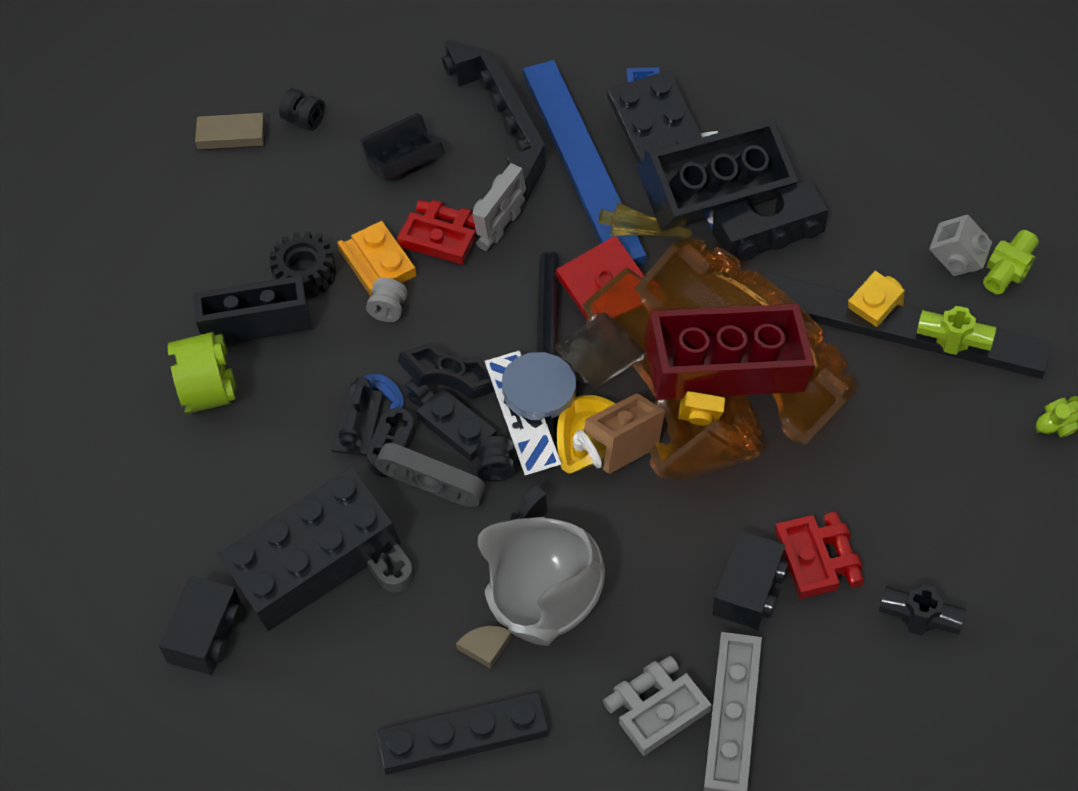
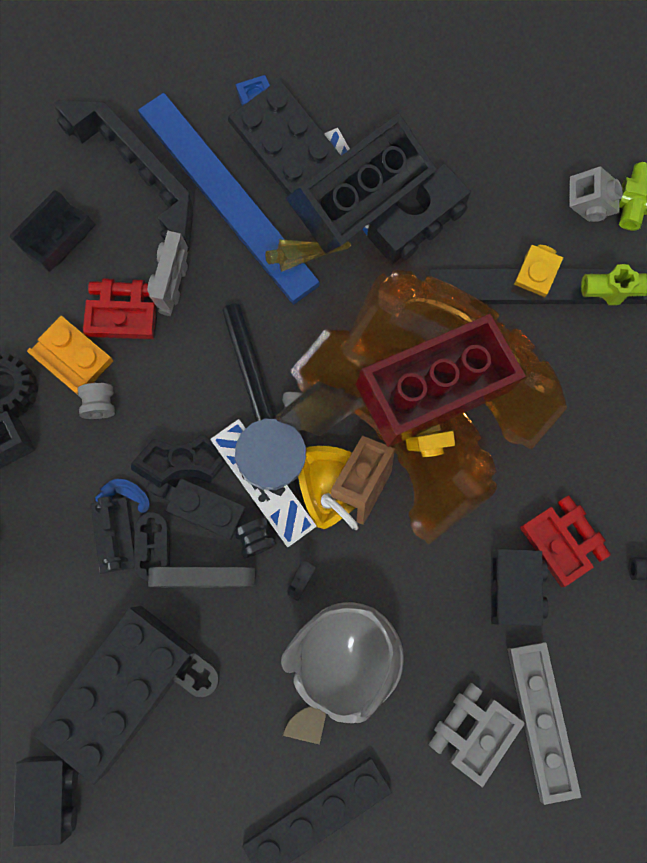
camera: 25 degrees left, 20 degrees up
(594, 270) = (291, 321): red plate -> none

